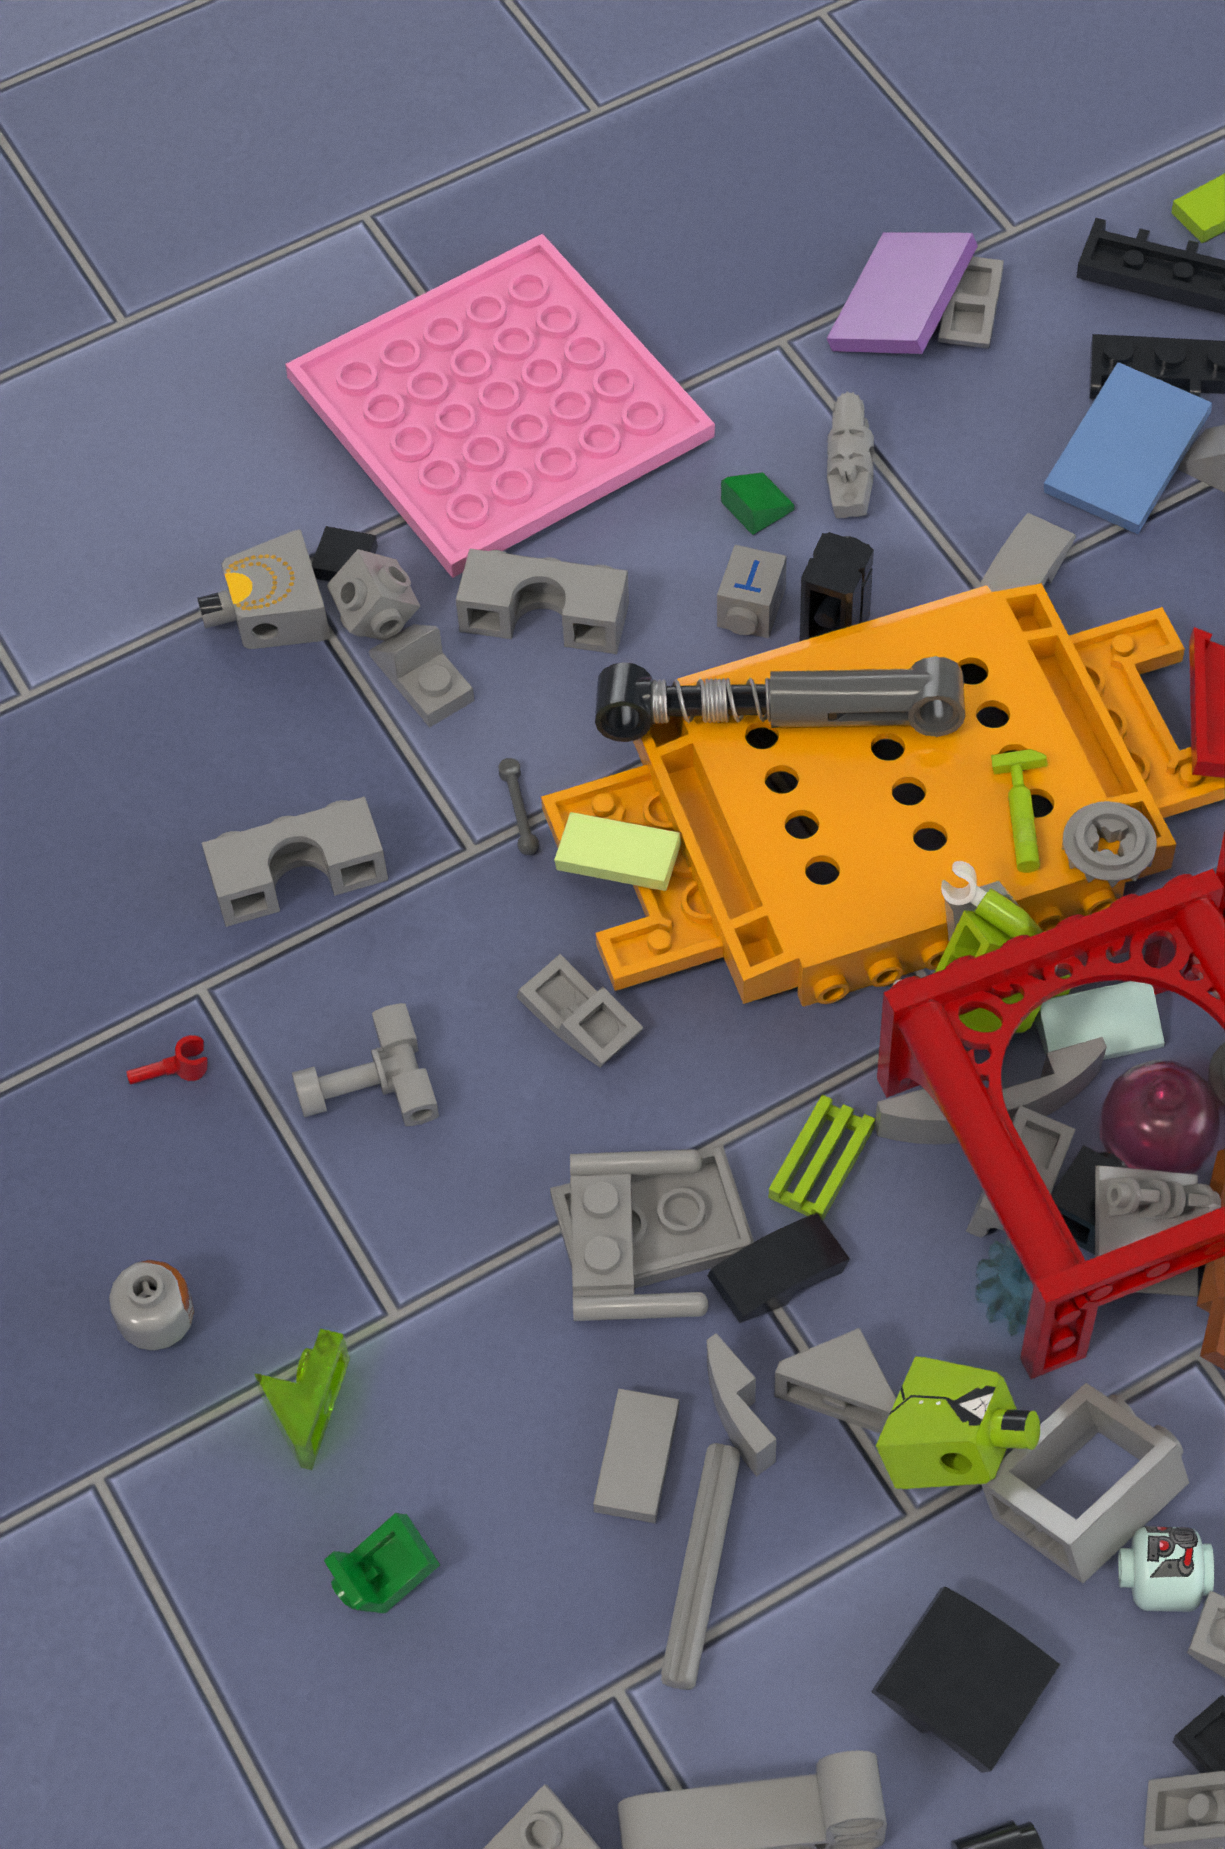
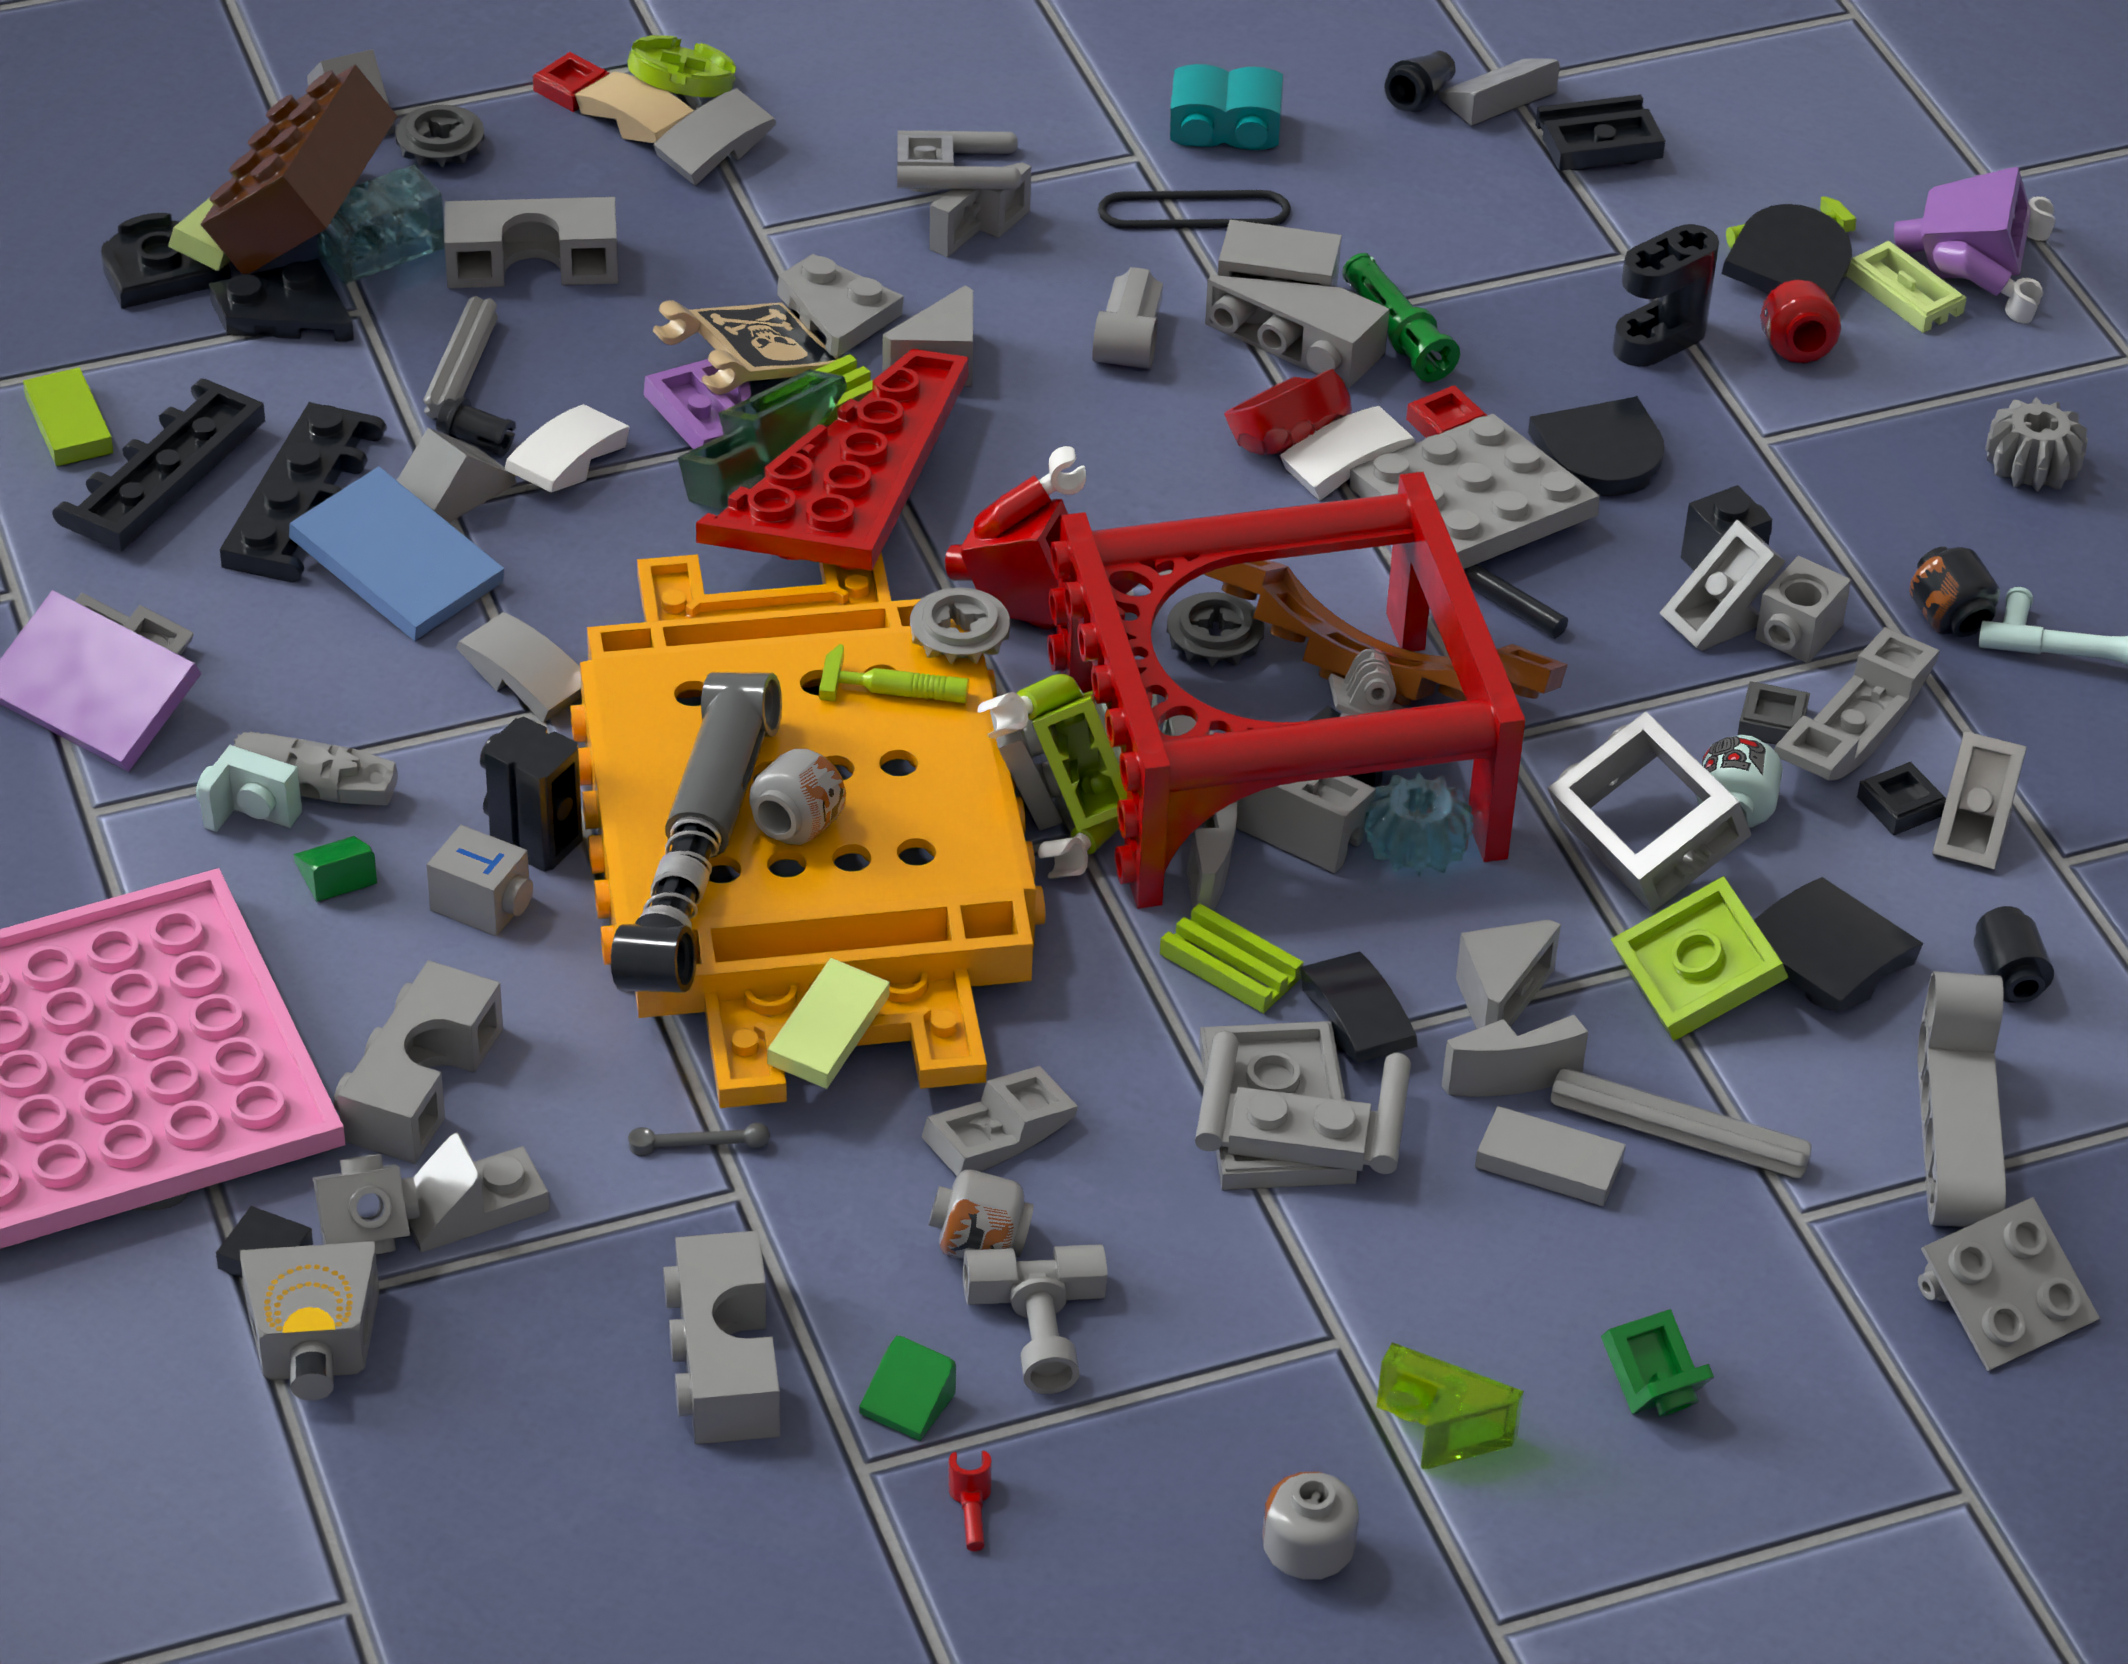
camera: 85 degrees left, 15 degrees down
(272, 1000) = (910, 1388): none -> green slope
(452, 1013) = (981, 1214): none -> light grey head
(812, 413) = (249, 785): none -> light aqua bracket
(832, 759) = (797, 797): none -> light grey head
(907, 1555) = (1699, 958): none -> lime tile
(952, 1426) = (1582, 879): lime torso -> none
(1160, 1118) = (1253, 682): clear pink cylinder -> none

